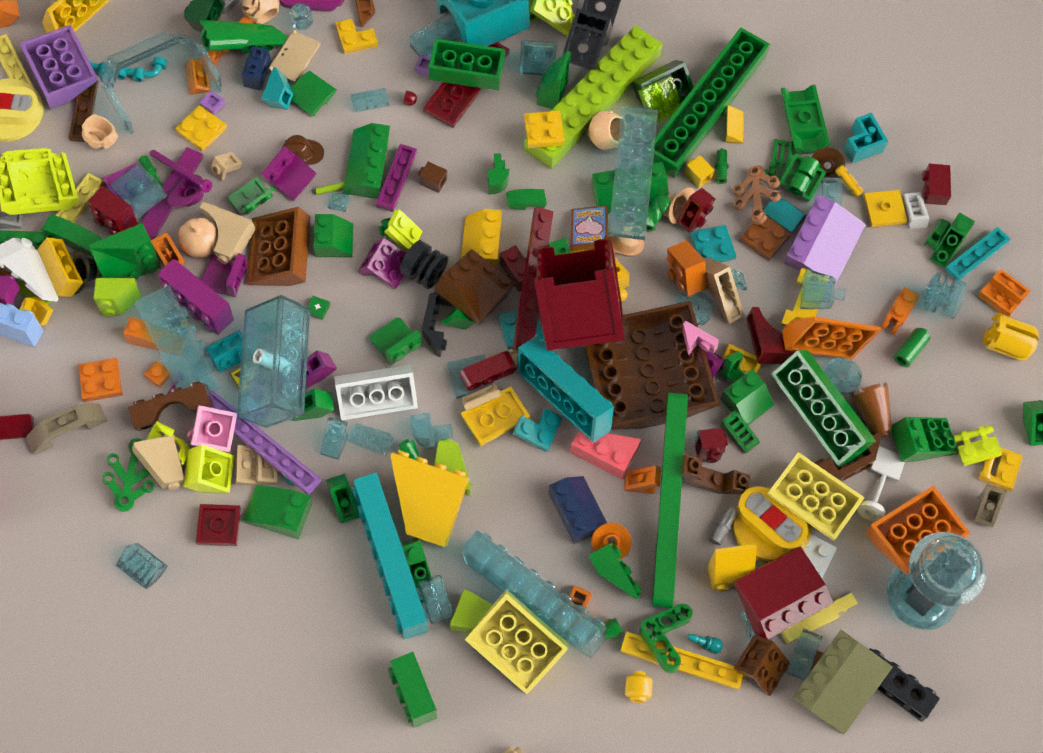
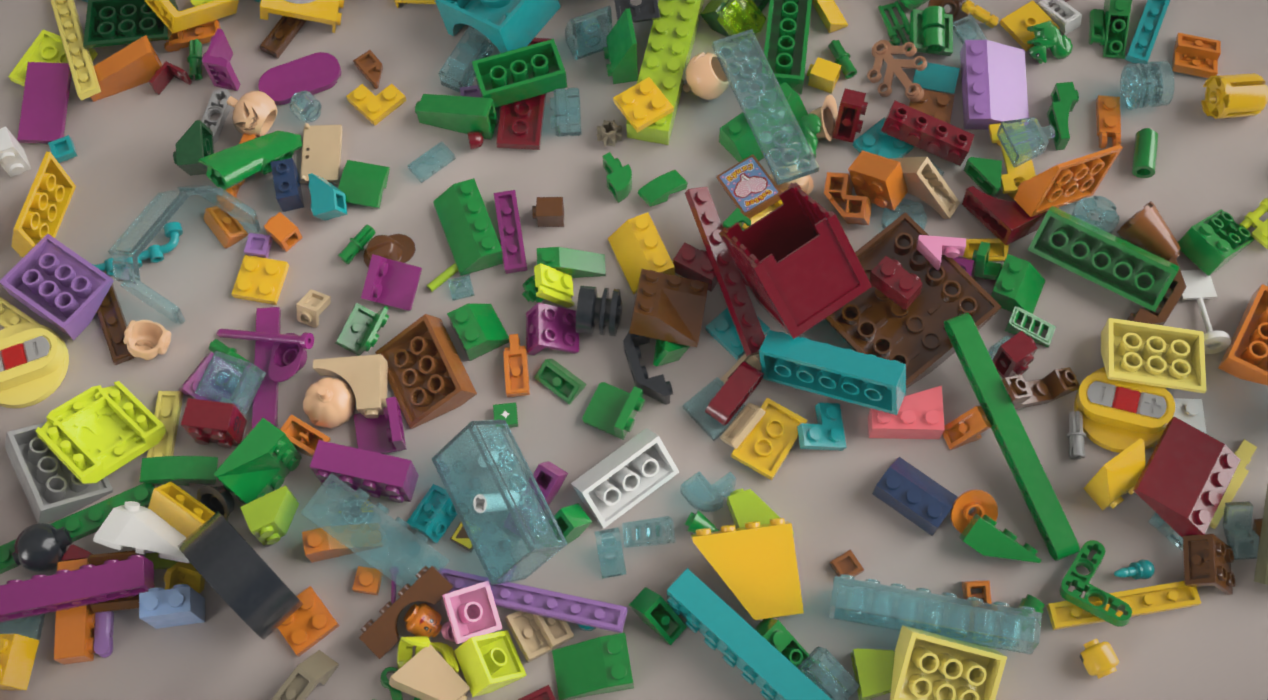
camera: 20 degrees left, 0 degrees up
(69, 323) = (240, 575): none -> black wheel
(179, 419) = (423, 620): none -> orange head
(234, 100) = (283, 231): none -> orange brick
(282, 134) = (357, 244): none -> green axle
(344, 277) = (516, 368): none -> orange hinge
(370, 301) = (559, 380): none -> green slope
(407, 73) = (458, 113): none -> green slope
(428, 221) = (573, 261): none -> slope
(489, 109) = (566, 112): none -> clear light blue brick
(498, 532) = (846, 564): none -> dark orange tile
(511, 139) = (609, 133): none -> dark tan gear
(649, 348) = (896, 282): none -> dark red brick
(654, 266) = (839, 192): none -> orange brick
(749, 251) = (927, 133): none -> dark red brick
(777, 303) = (985, 174): none -> green slope
(864, 284) = (1063, 101): none -> green slope
(892, 224) = (1048, 37): none -> green animal

